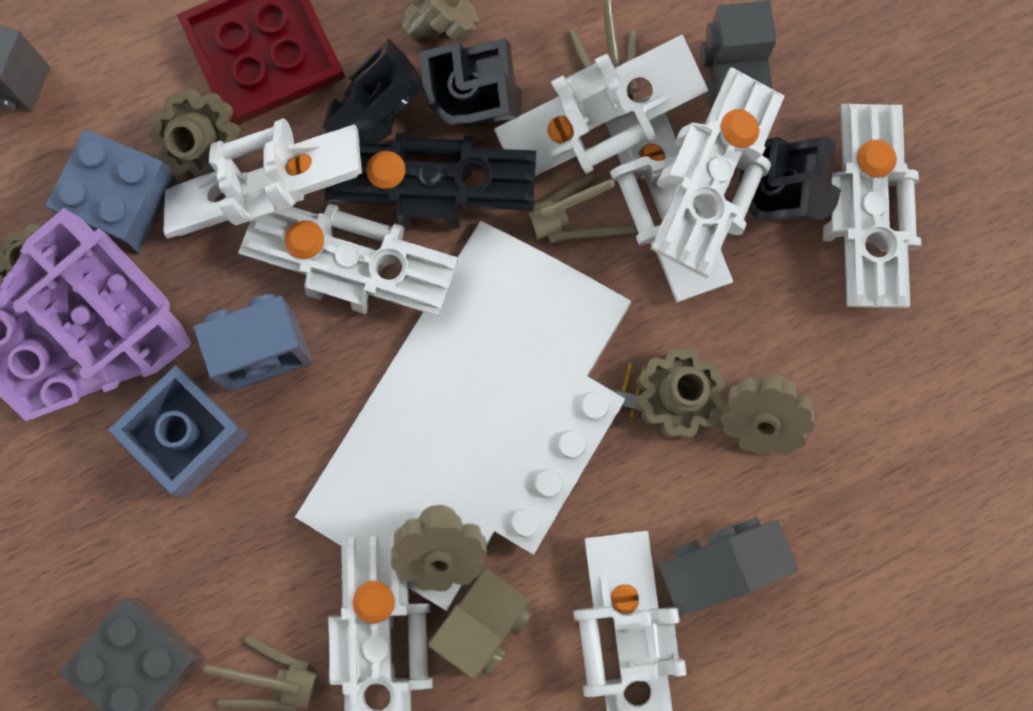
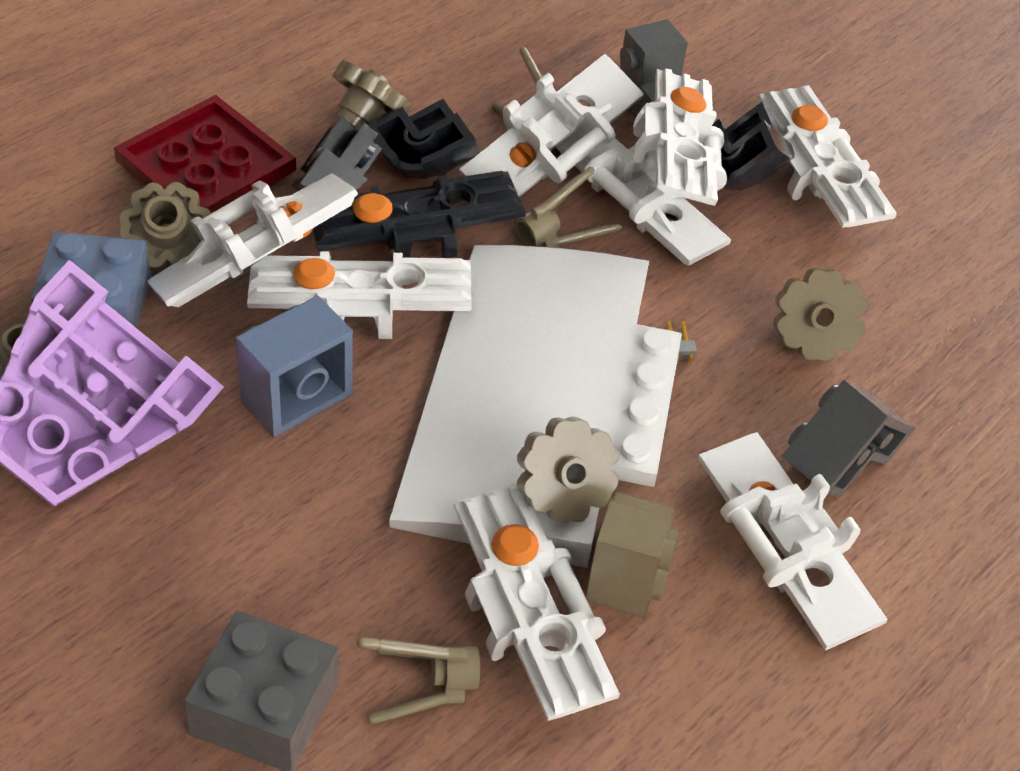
camera: 25 degrees left, 30 degrees down
(178, 432) = (240, 461): sand blue brick -> none
(663, 404) = (729, 325): dark tan plant -> none

